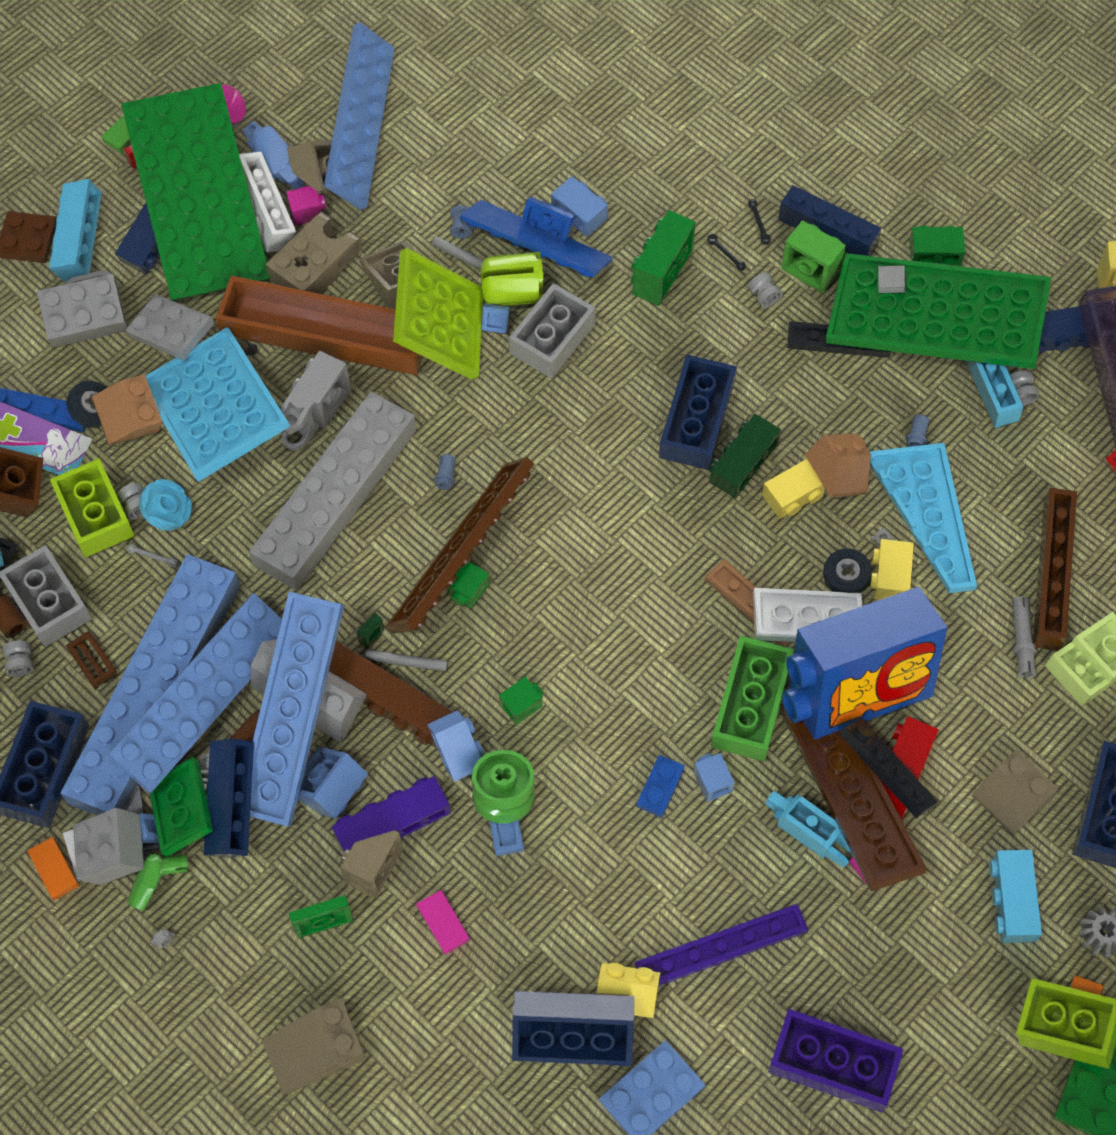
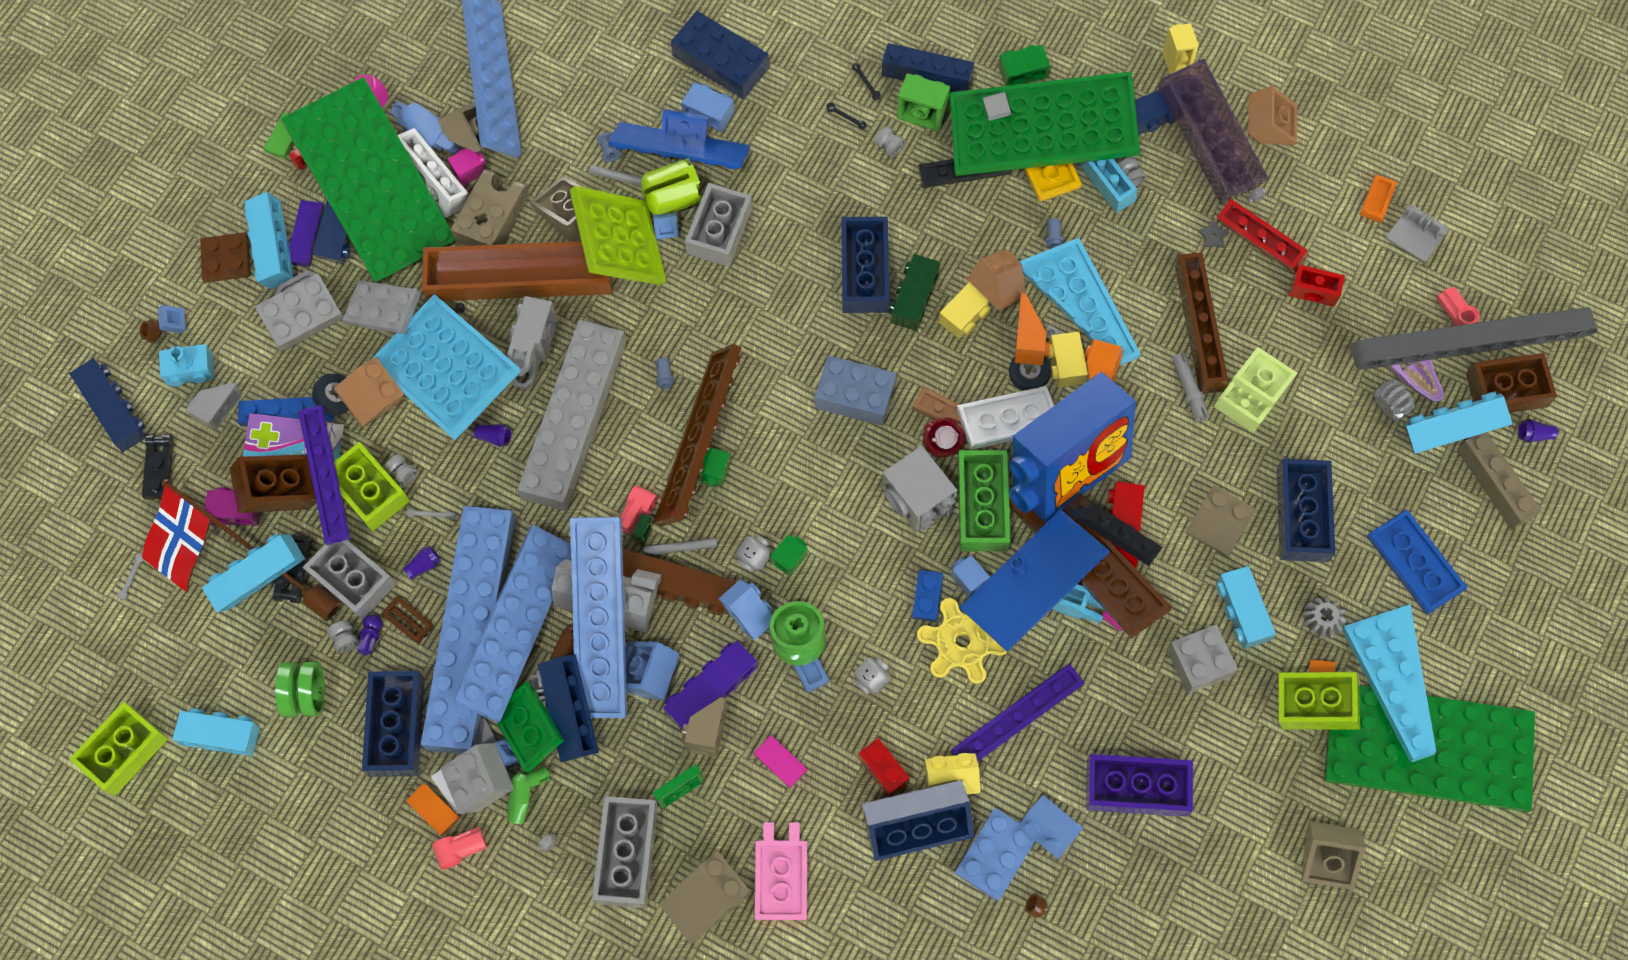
camera: 15 degrees left, 5 degrees up
(47, 663) = (369, 634): none -> dark purple axle
(51, 483) = (324, 475): none -> dark purple tile
(57, 916) = (452, 849): none -> coral piece
(114, 232) = (305, 232): none -> dark purple tile
(126, 603) = (423, 561): none -> dark purple cone
(165, 505) = (429, 467): medium azure tile -> none
(241, 972) = (625, 852): none -> light grey brick
(246, 489) = (495, 434): none -> dark purple cone
(354, 682) = (646, 579): none -> light grey tile
(375, 600) = (638, 502): none -> coral piece
(404, 1047) = (781, 876): none -> bright pink tile
(482, 688) = (753, 553): none -> light grey head
(553, 960) = (883, 768): none -> red brick
(572, 855) = (872, 675): none -> light grey head
(609, 155) = (720, 54): none -> dark blue brick
(647, 543) = (855, 390): none -> sand blue brick
(663, 257) = (795, 135): green brick -> none
(678, 827) = (952, 655): none -> light yellow plate
(683, 667) = (919, 490): none -> light grey brick
(720, 1078) = (1050, 827): none -> medium blue brick
(728, 618) = (943, 437): none -> dark red hair
(782, 799) = (1034, 580): none -> blue piece
(858, 533) = (1031, 335): none -> orange slope
(933, 374) = (1053, 180): none -> yellow plate
(933, 579) = (1103, 358): none -> orange slope
(949, 940) = (1202, 659): none -> light grey brick
(1095, 485) = (1214, 241): none -> dark grey plate

